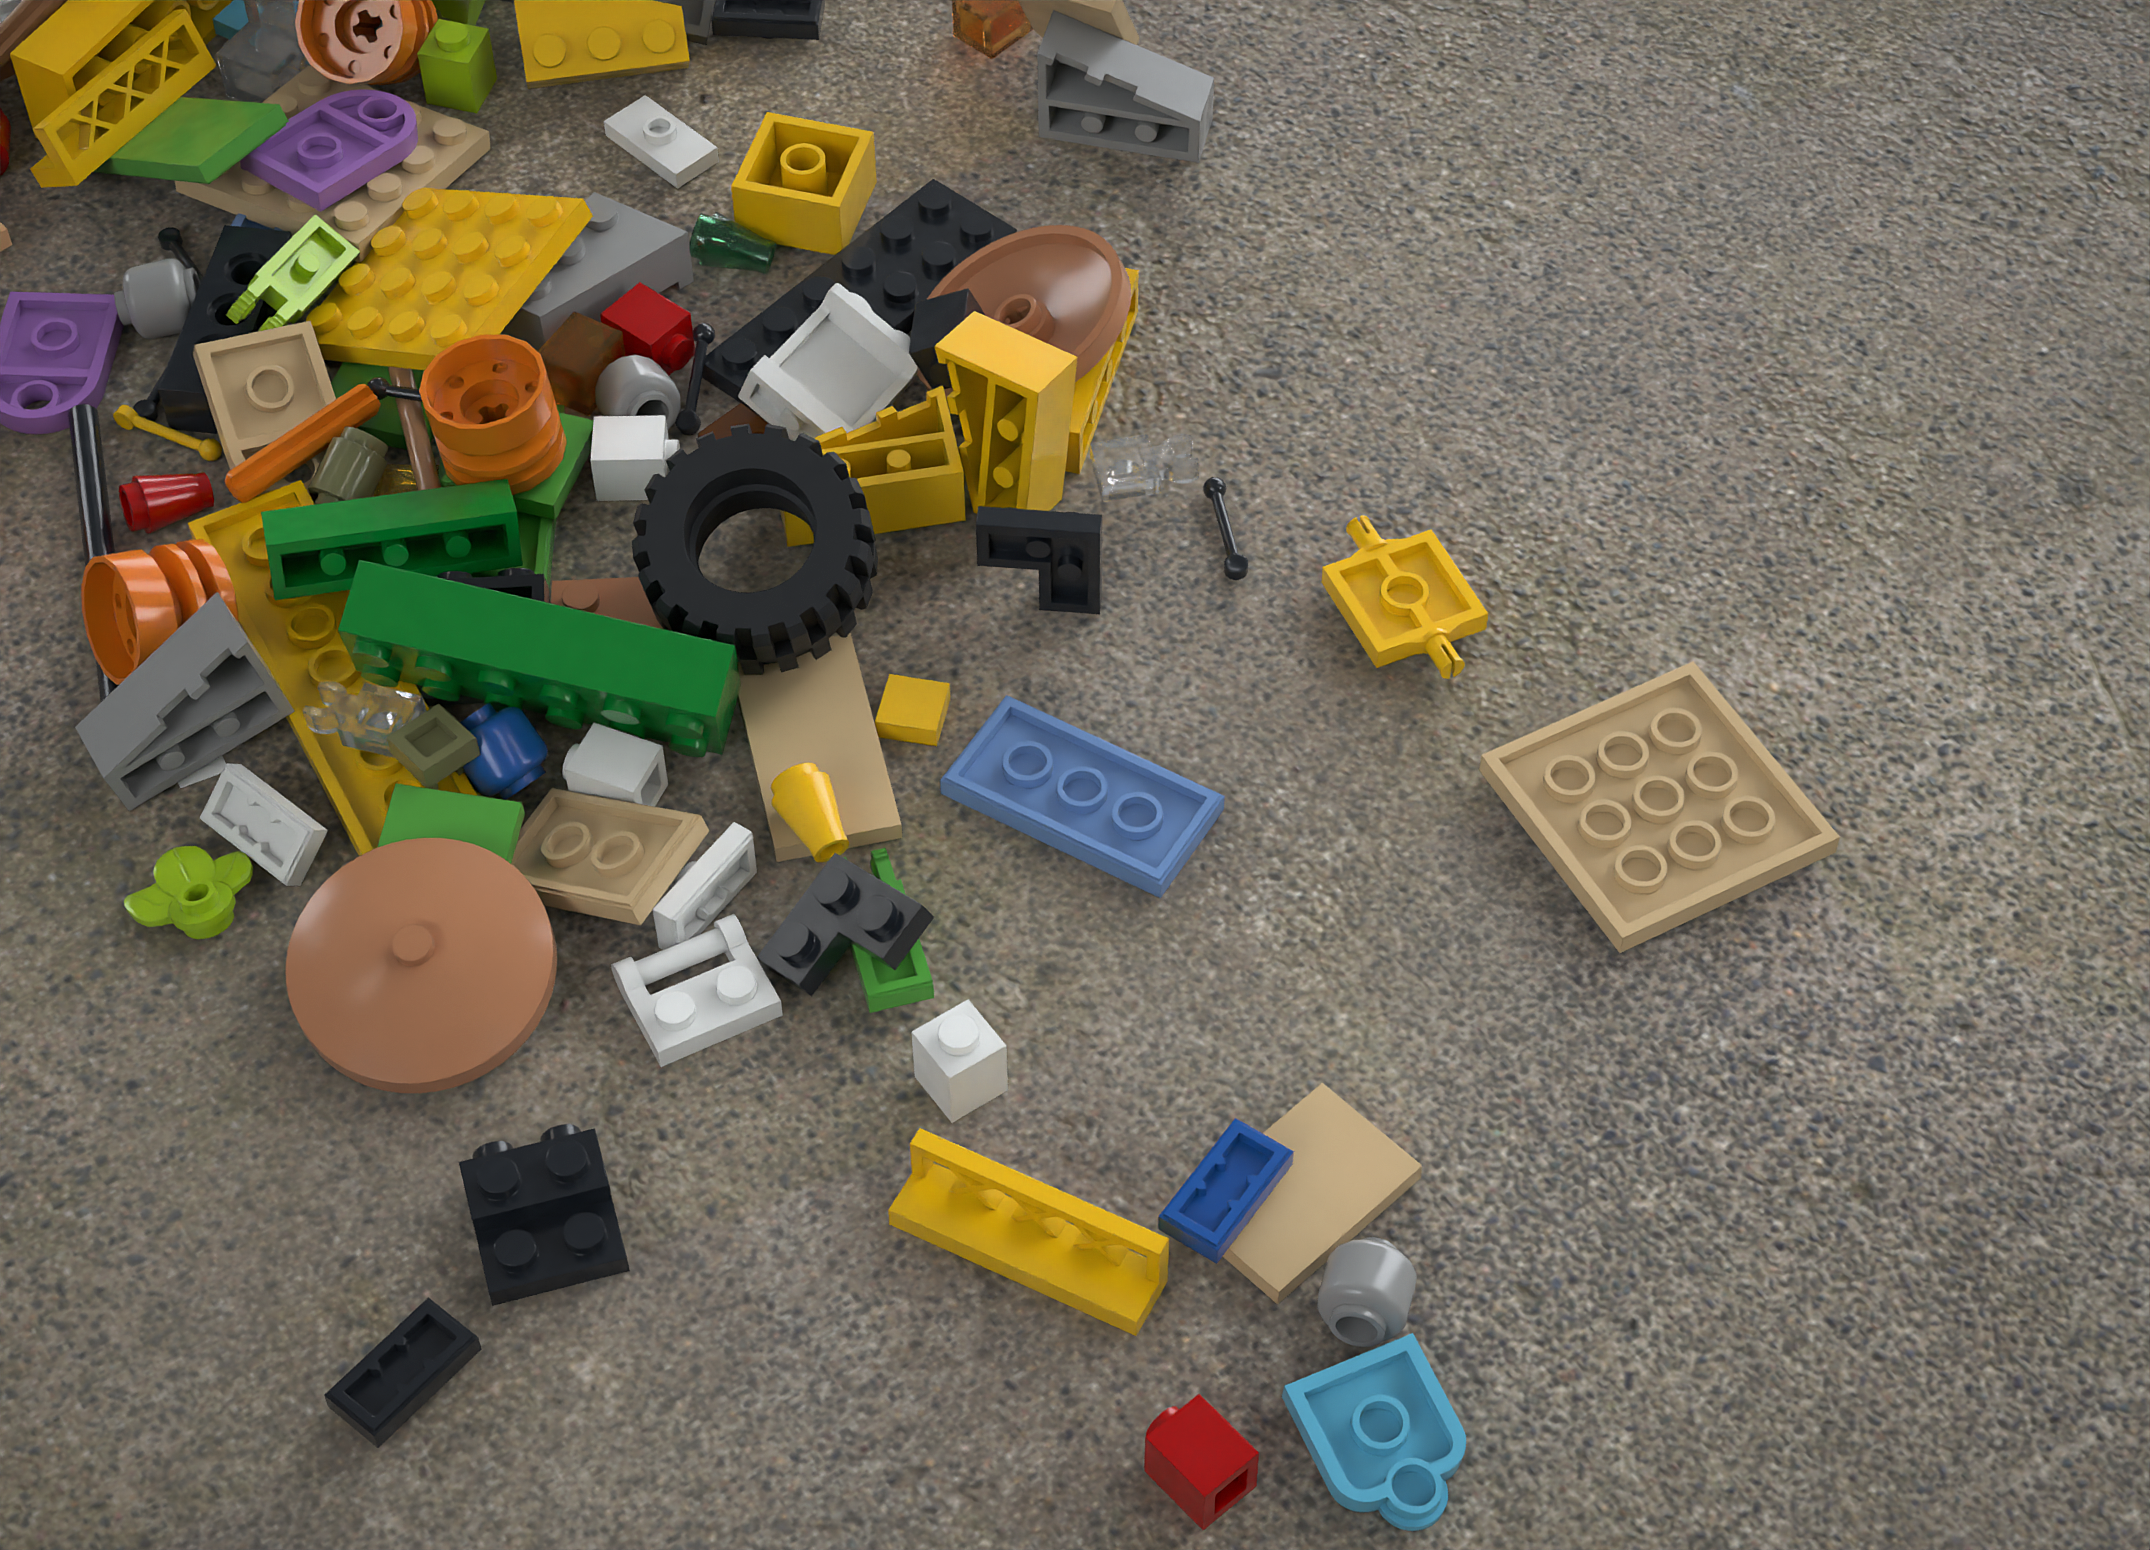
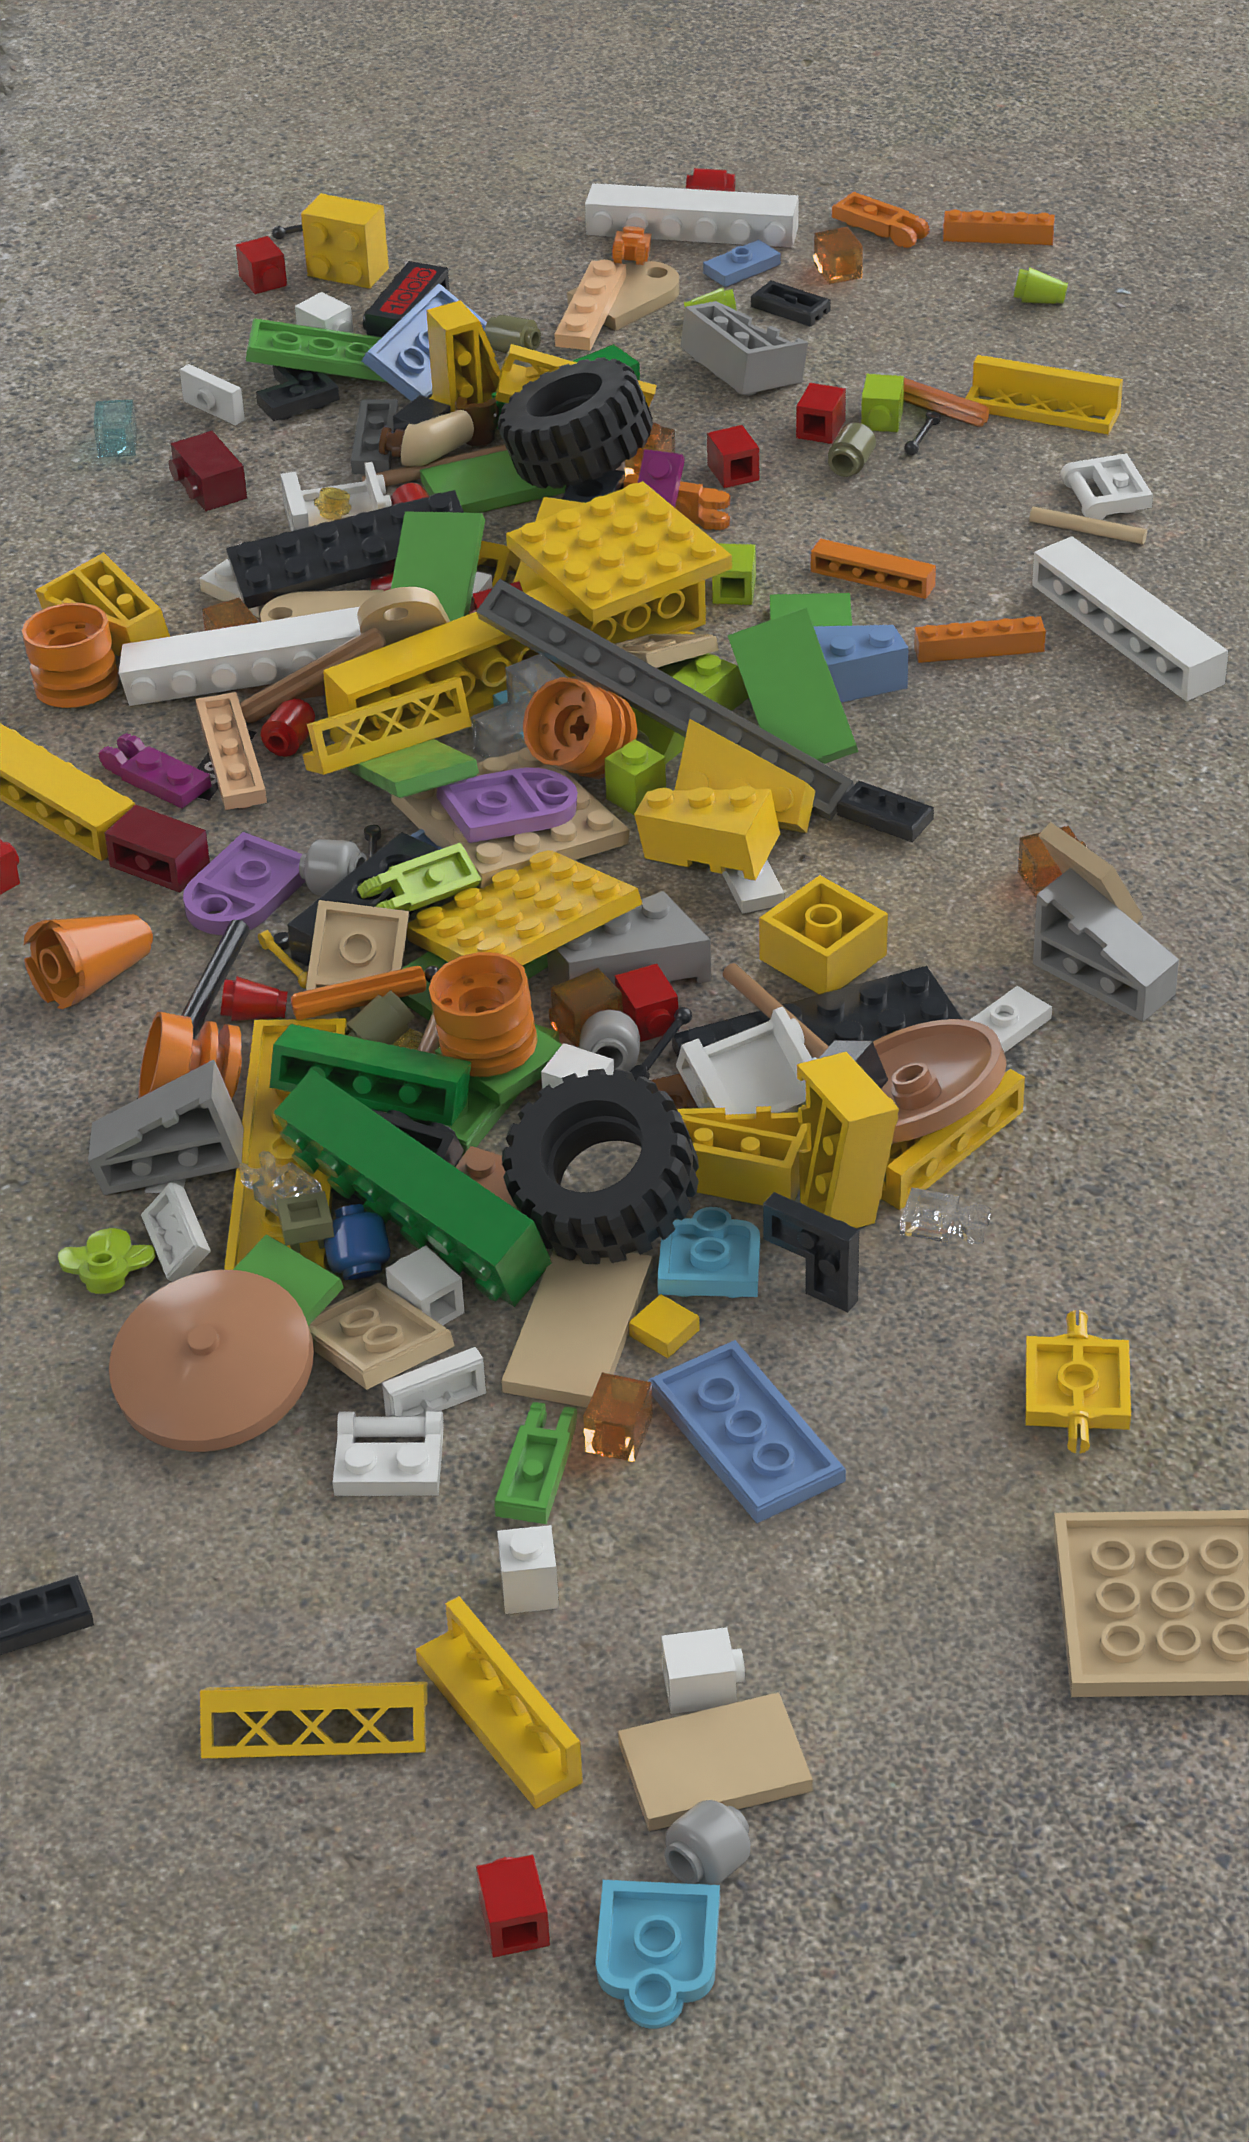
camera: 30 degrees right, 10 degrees down
(543, 1214) = (189, 1555): black plate -> none
(590, 98) = (709, 827): none -> yellow wedge
(729, 245) = (747, 955): clear green cone -> none
(799, 287) = (767, 1003): none -> medium nougat bar
(810, 809) = (536, 1358): yellow cone -> none
(812, 1321) = (313, 1697): none -> yellow fence
(841, 910) = (512, 1437): black plate -> none
(920, 610) = (710, 1256): none -> medium azure plate
(940, 838) = (618, 1417): none -> clear orange brick
(1062, 200) = (1014, 1016): none -> white plate
(1222, 1087) = (701, 1670): none -> white brick
(1225, 1190) = (651, 1731): blue plate -> none
(1235, 564) = (971, 1314): black hinge -> none

